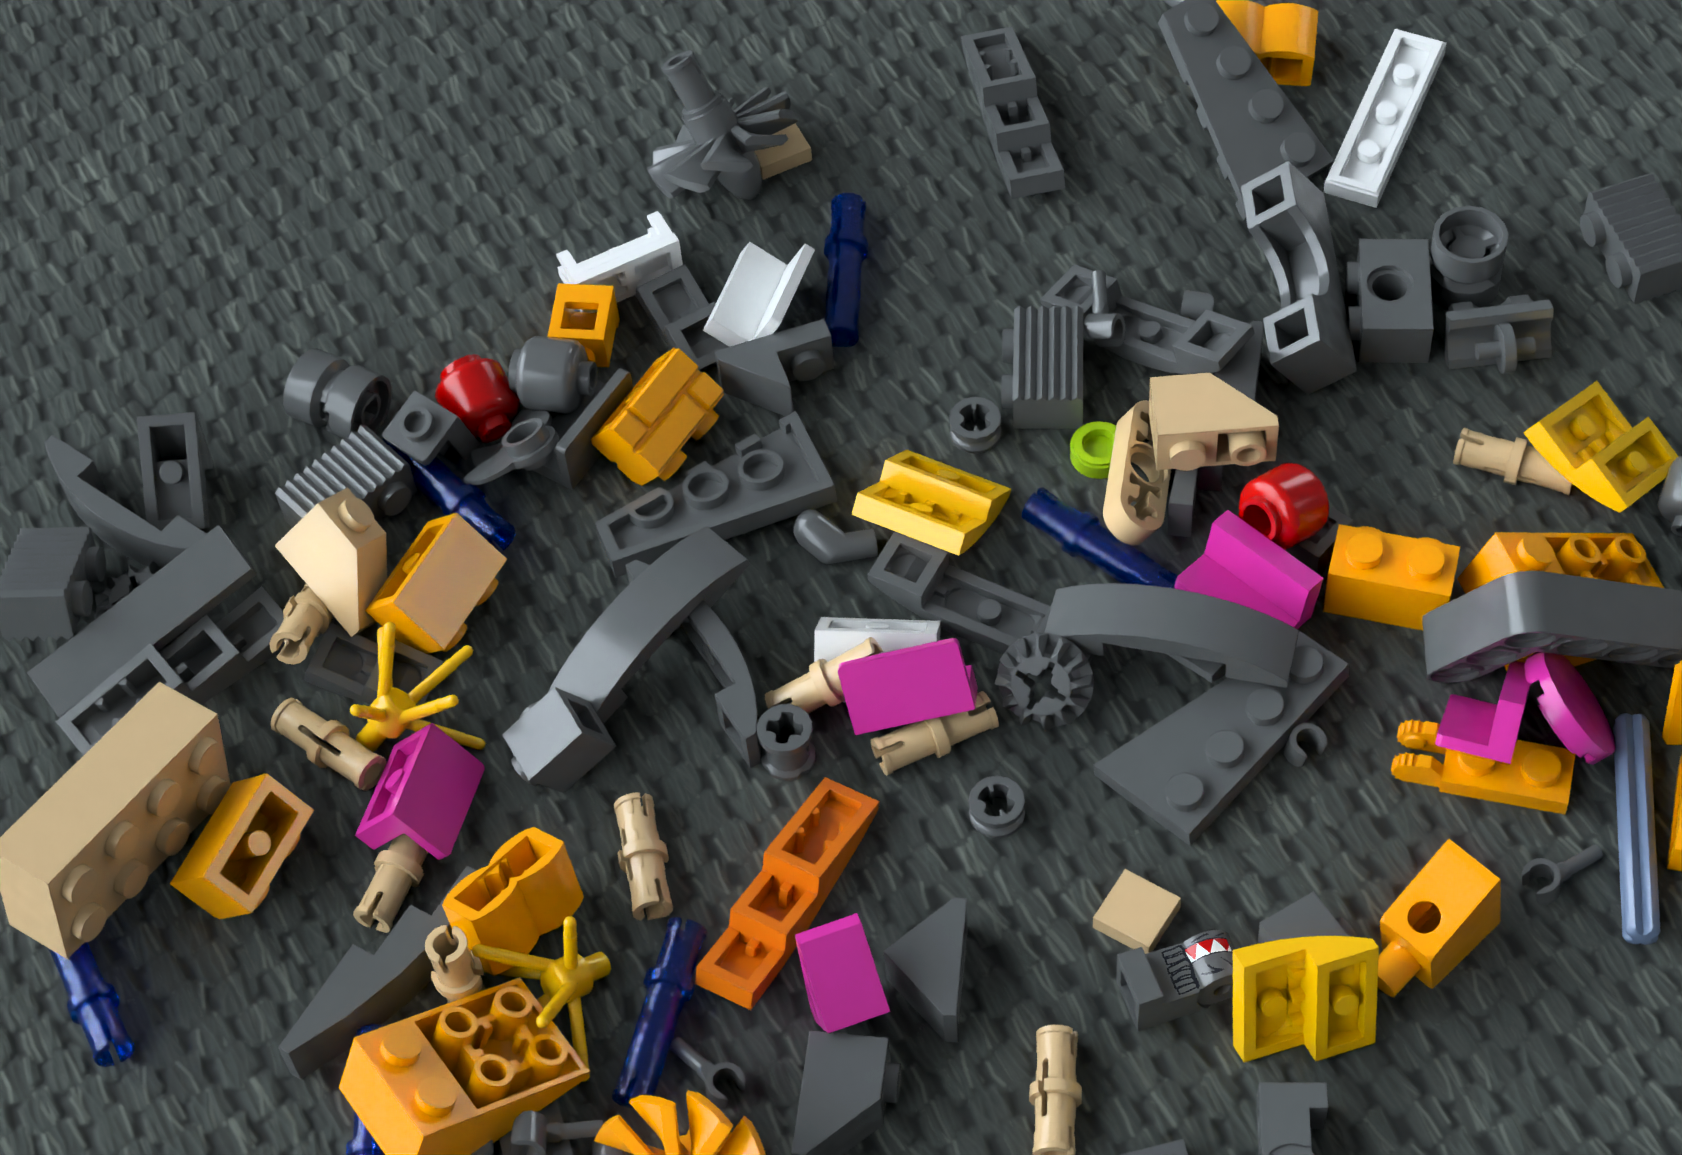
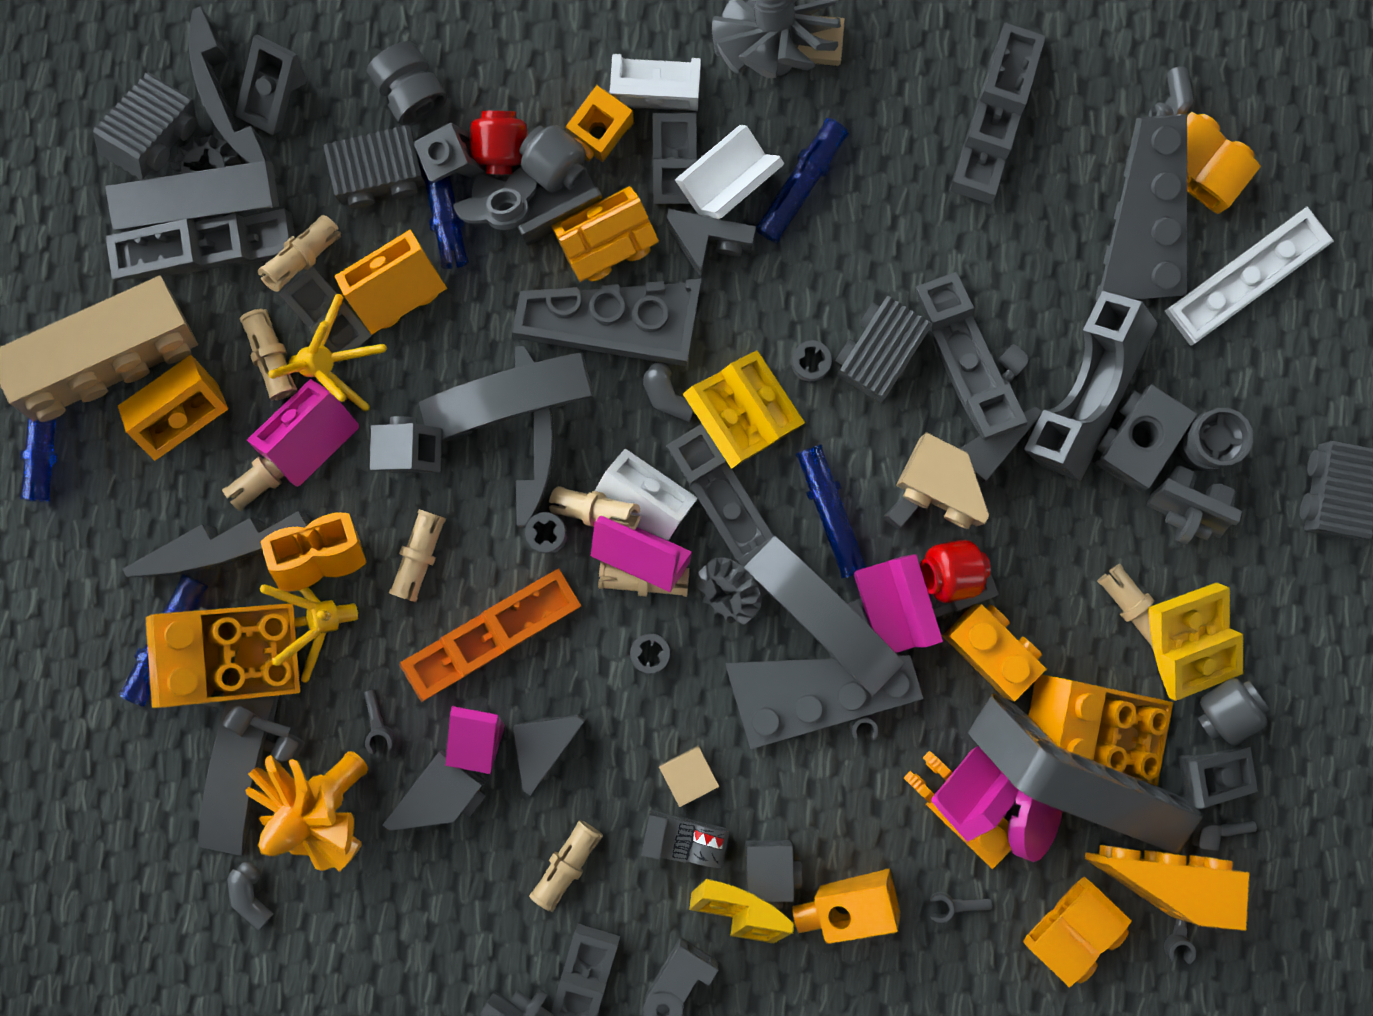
camera: 25 degrees right, 30 degrees up
(340, 557) = (334, 229): tan slope -> none
(456, 967) = (249, 587): tan pin -> none
(667, 988) = (379, 659): clear blue pin -> none
(1092, 449) = (879, 429): lime tile -> none
(1103, 327) = (936, 340): dark grey hand -> none
(1124, 485) = (871, 480): tan beam -> none
(1636, 830) = (1022, 907): sand blue axle -> none

